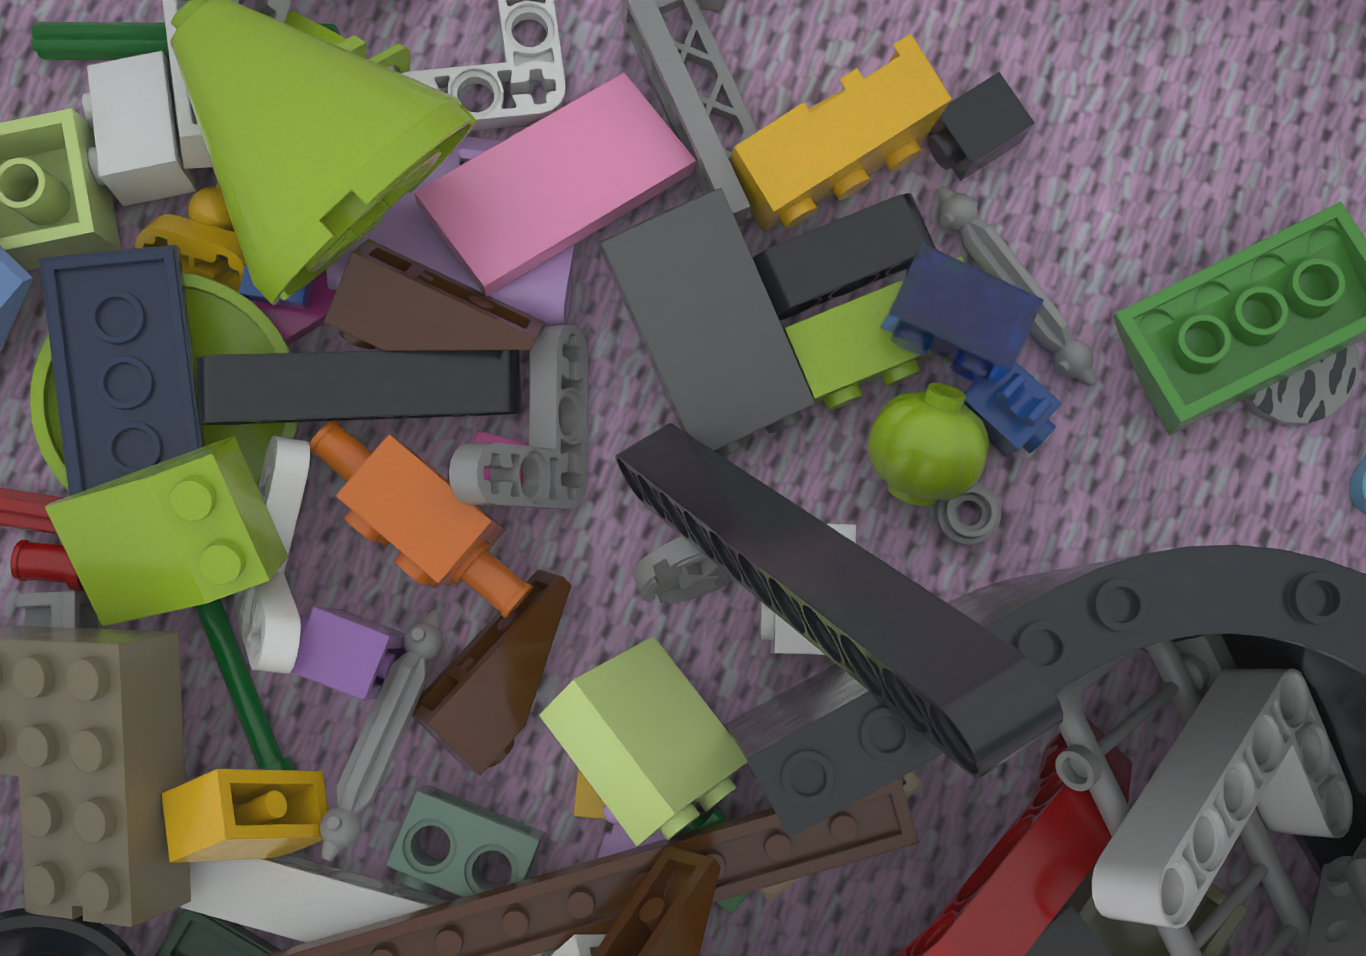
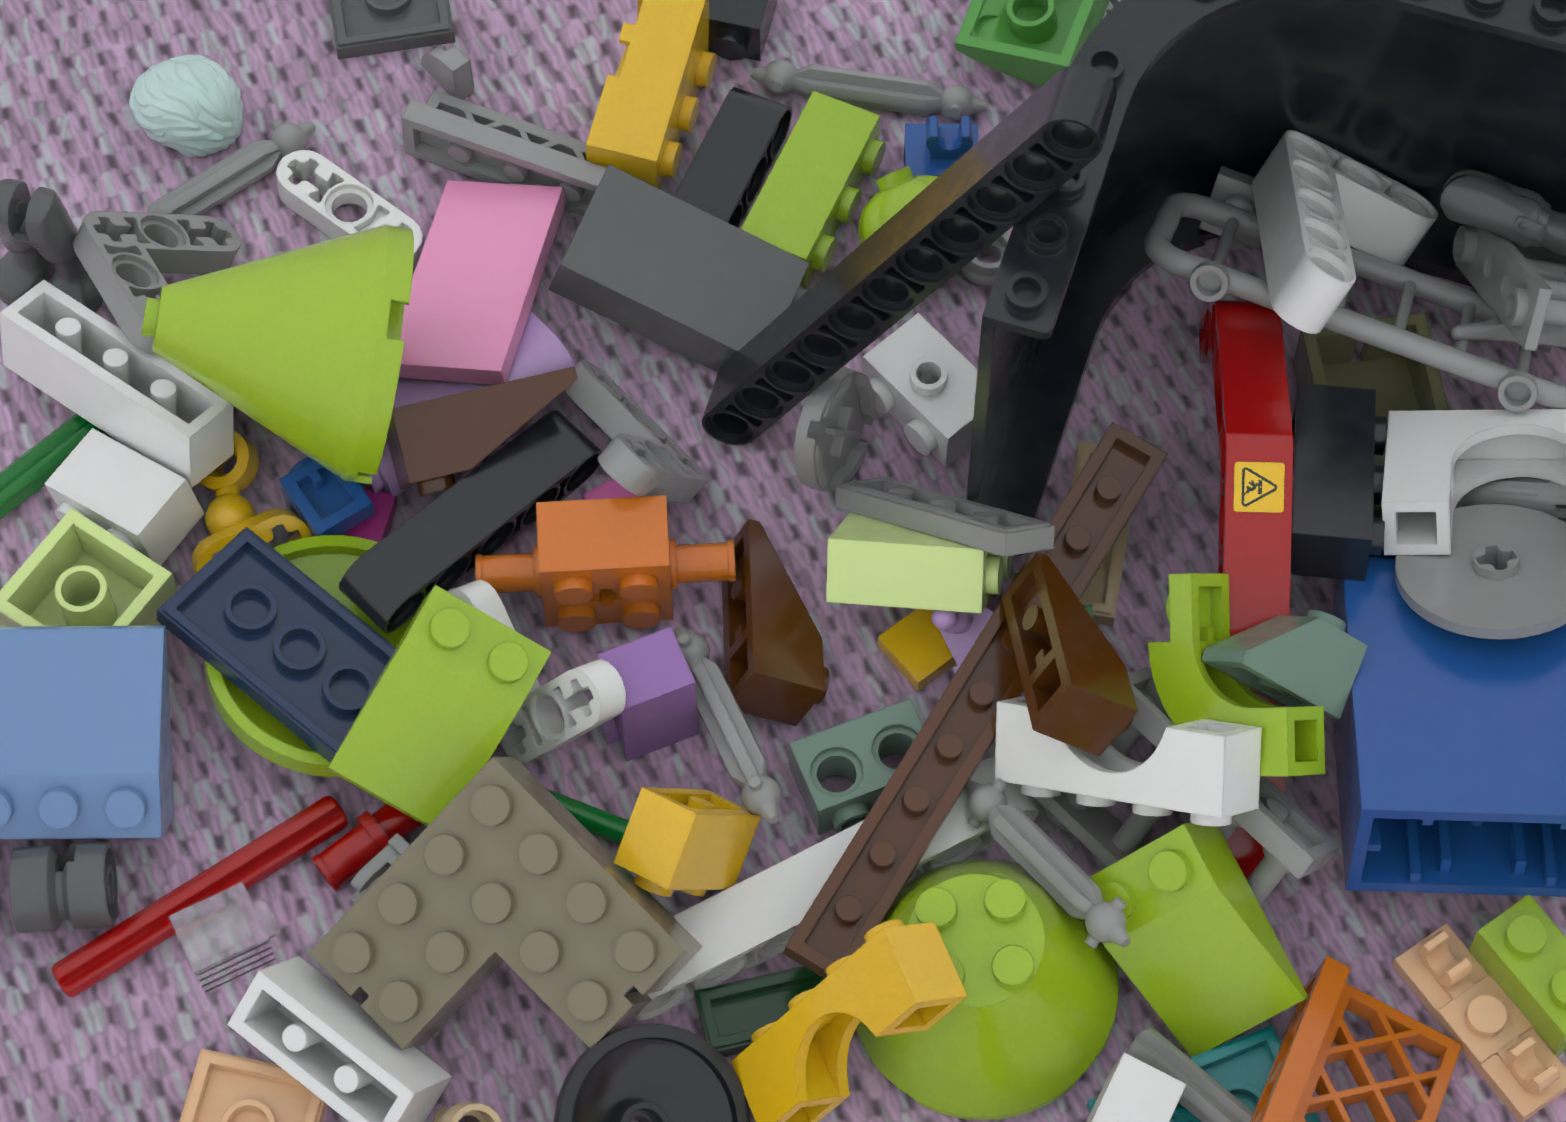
camera: 40 degrees left, 20 degrees down
(695, 737) = (945, 516): none -> light grey tile
(960, 315) = (851, 117): clear blue brick -> none

